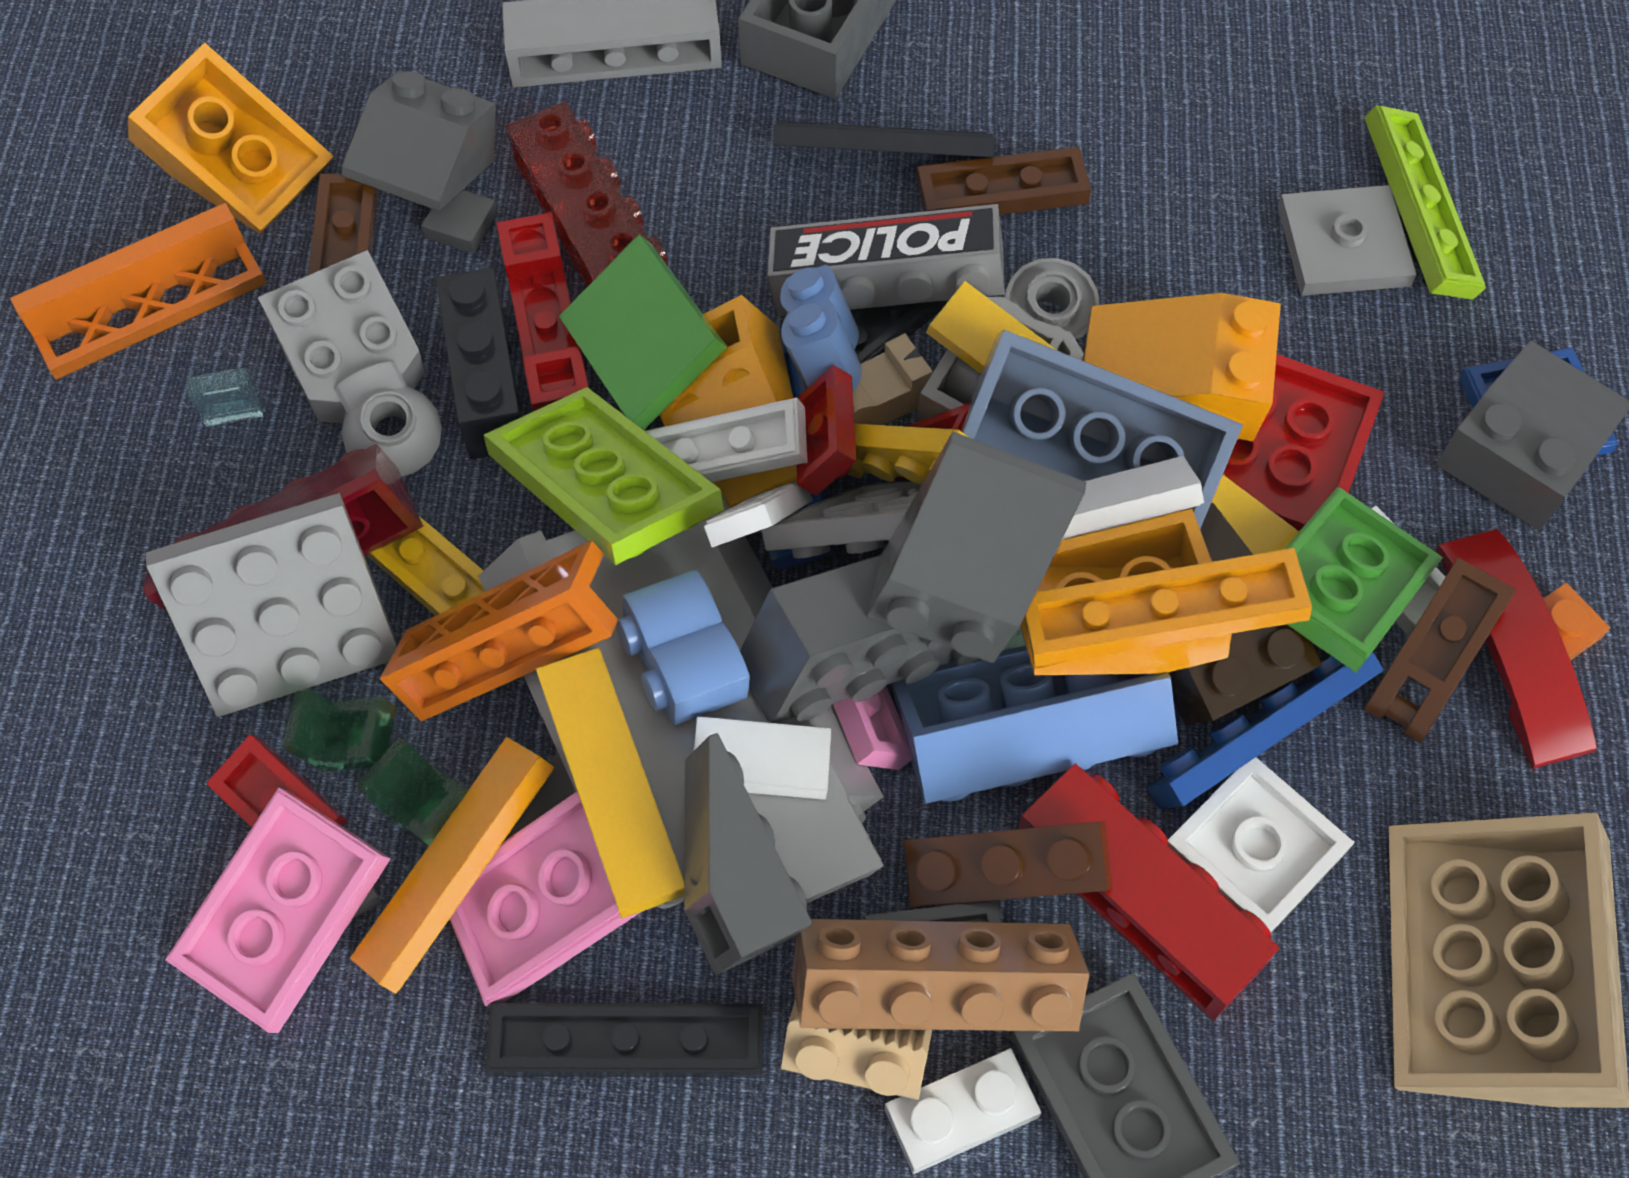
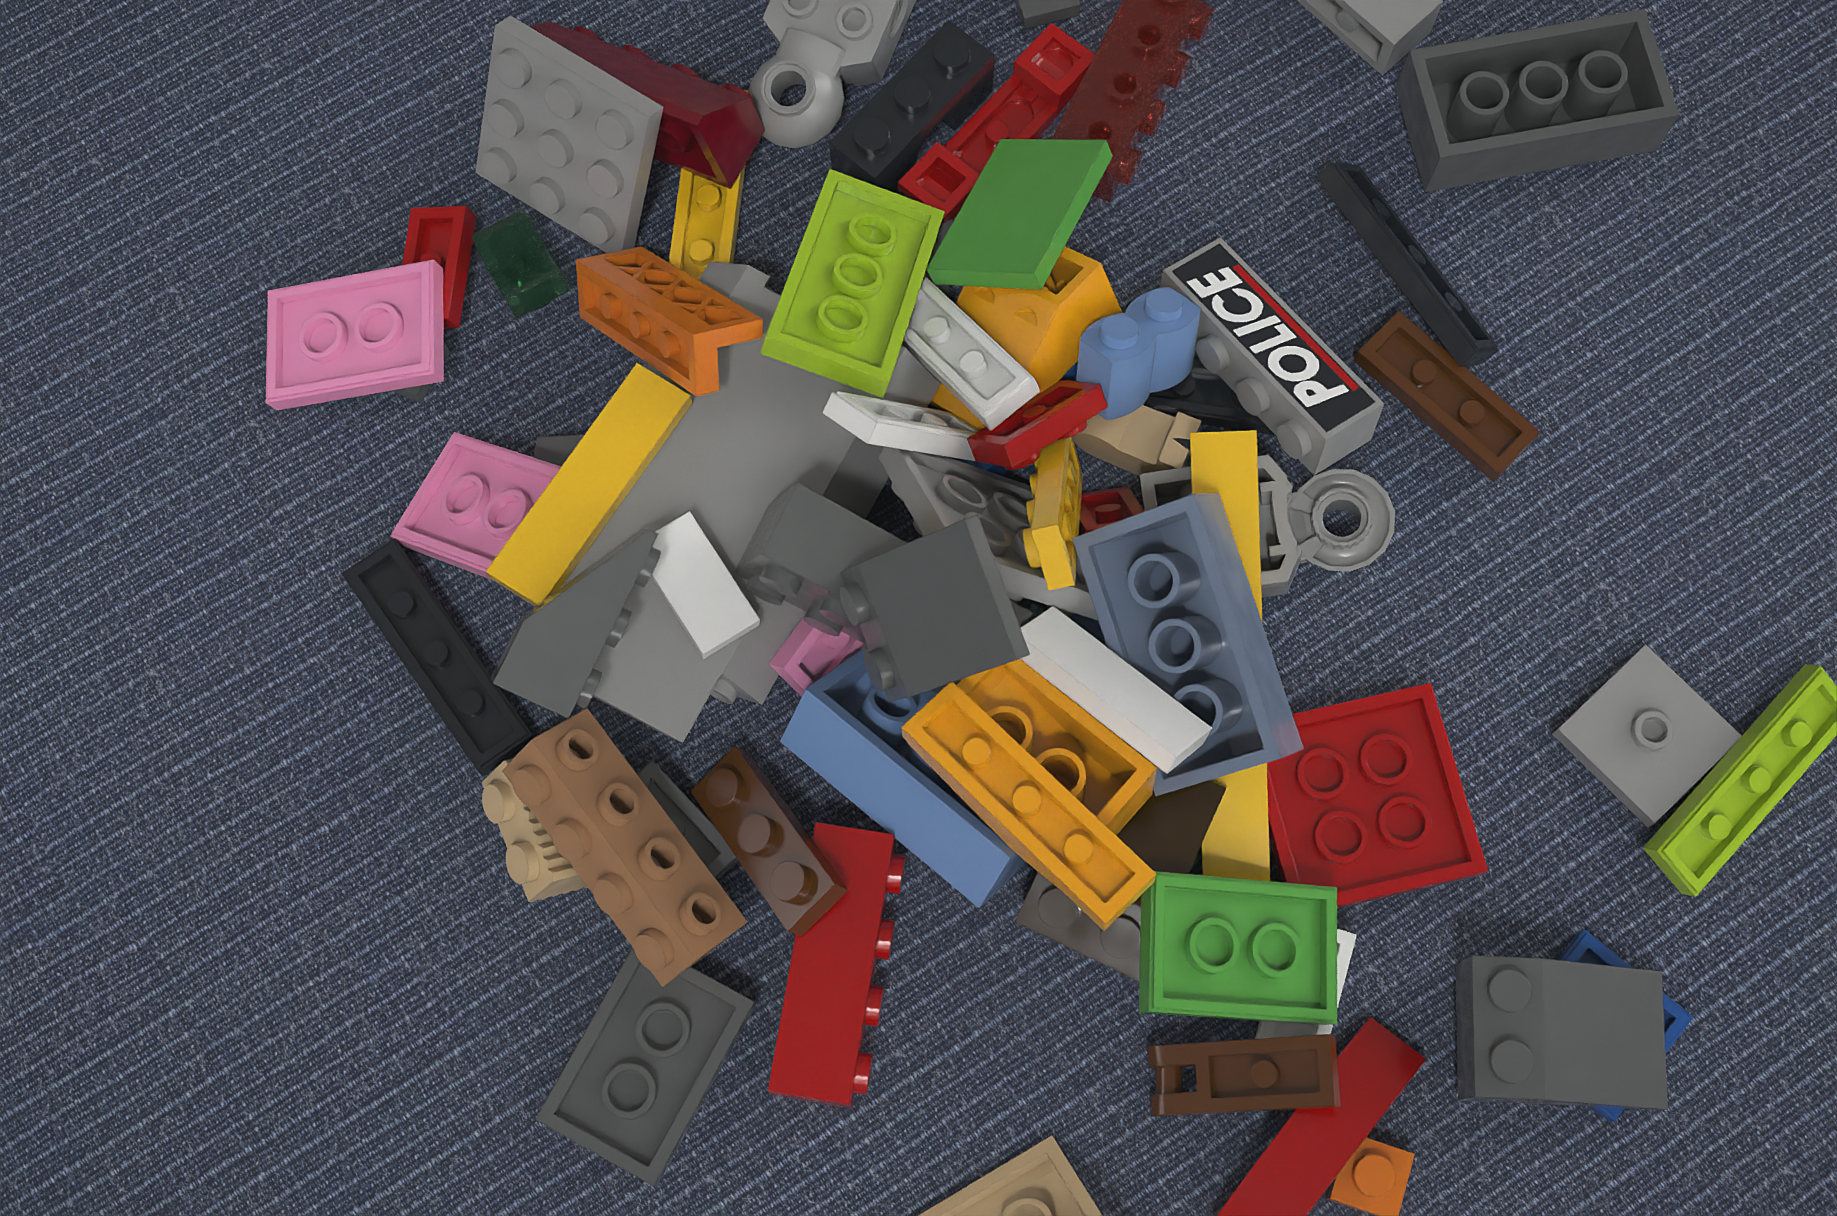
camera: 55 degrees right, 10 degrees up
(411, 791) = (510, 360): clear green bracket -> none
(451, 865) = (471, 427): light orange tile -> none
(684, 648) = (738, 457): medium blue brick -> none
(962, 1111) = (557, 945): white plate -> none
(1194, 348) = (1359, 670): light orange slope -> none
(1243, 739) = (1030, 961): blue plate -> none
(1261, 843) = (945, 1034): white plate -> none

